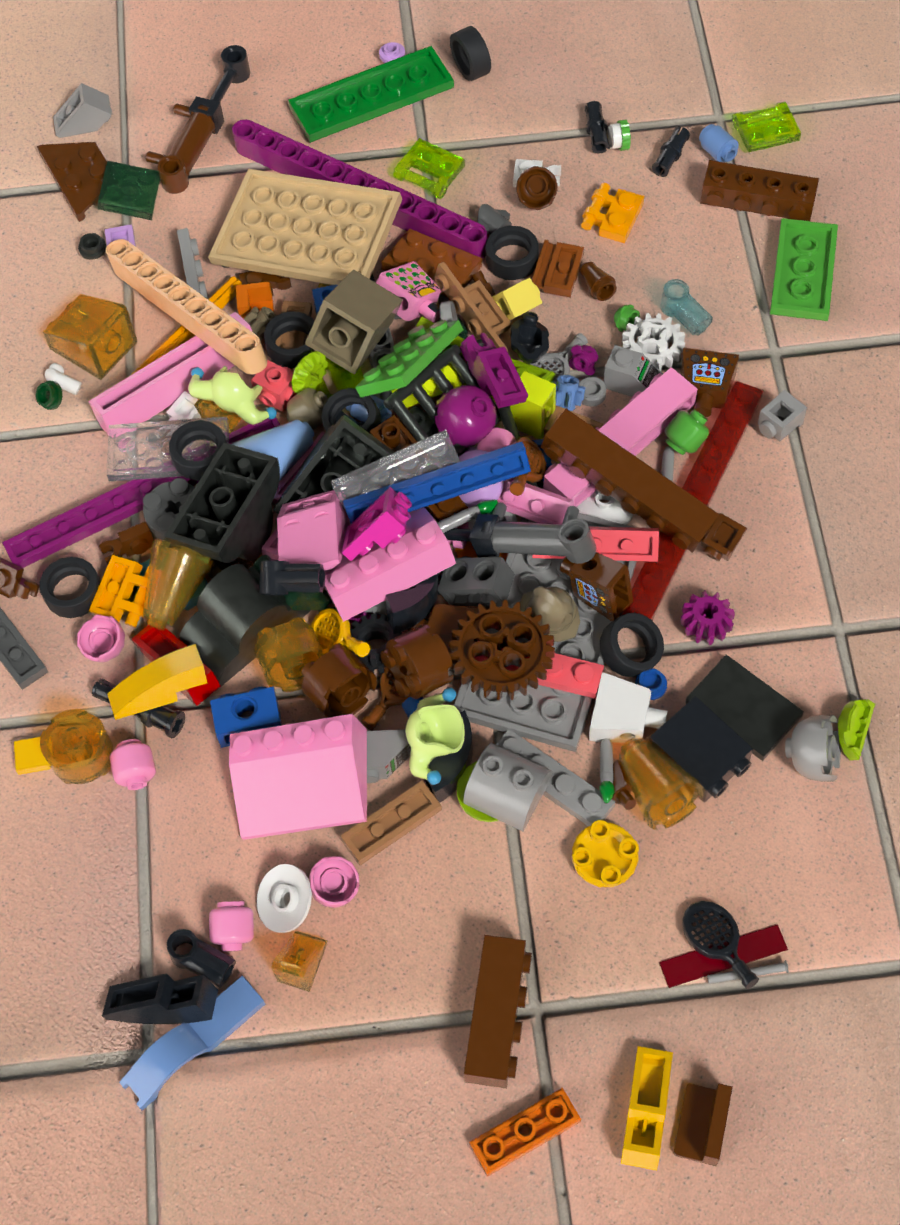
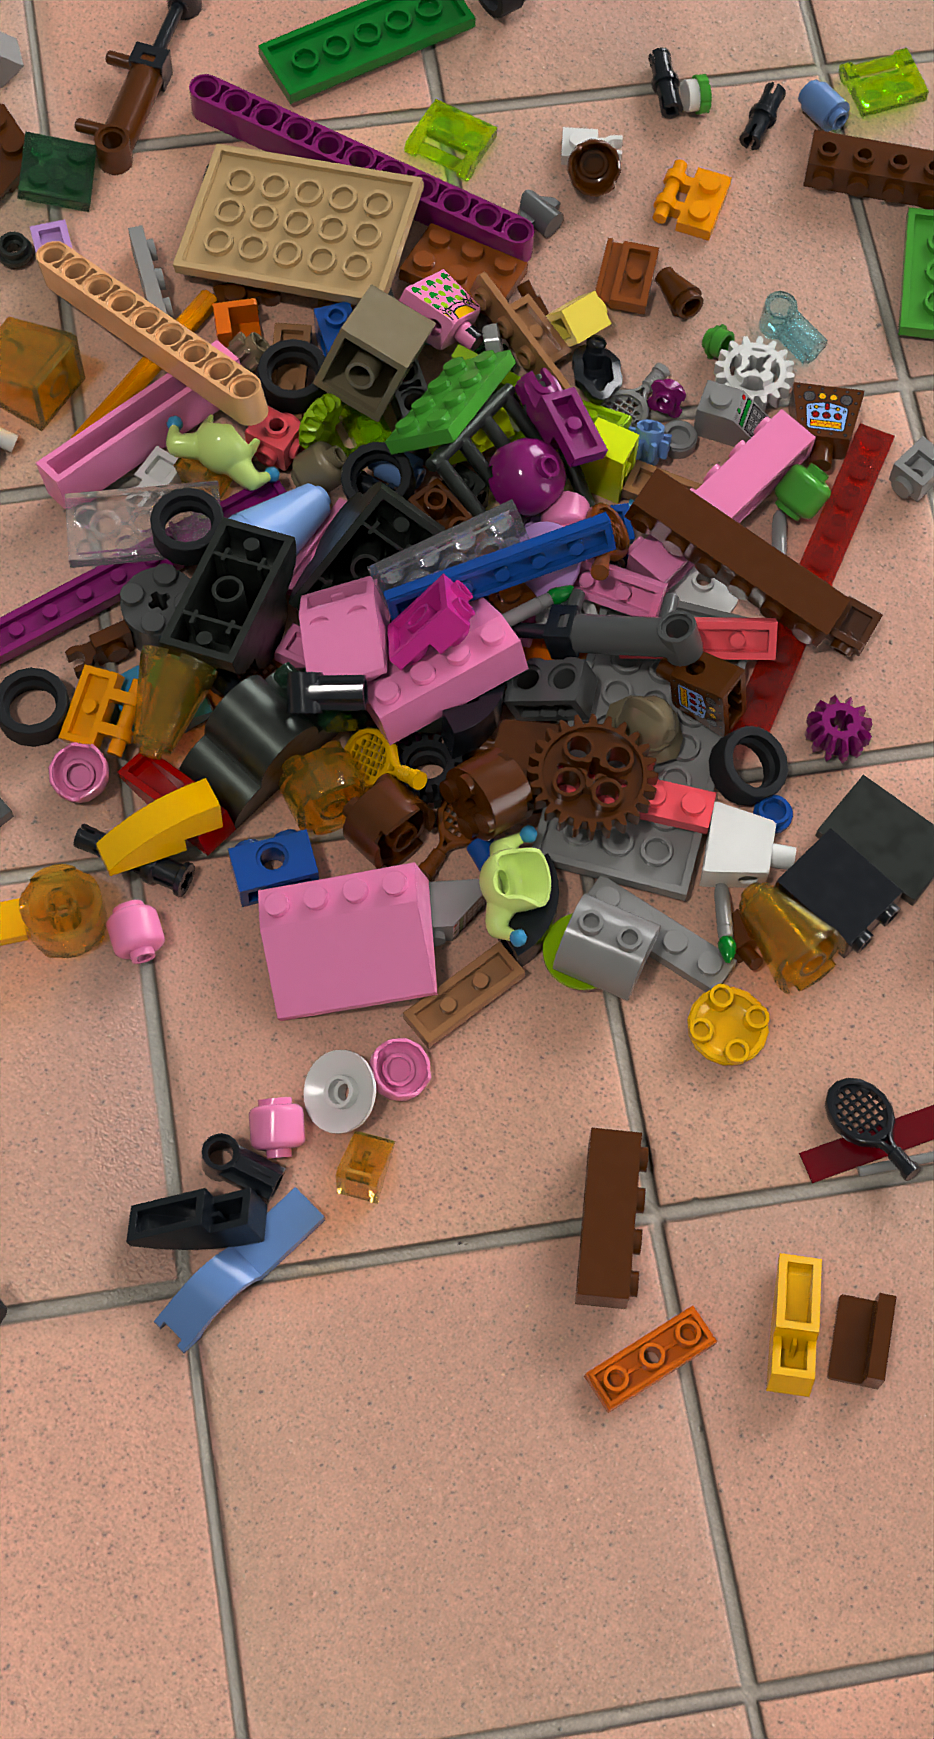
camera: 10 degrees left, 5 degrees up
(512, 236) = (566, 232): black tyre -> none

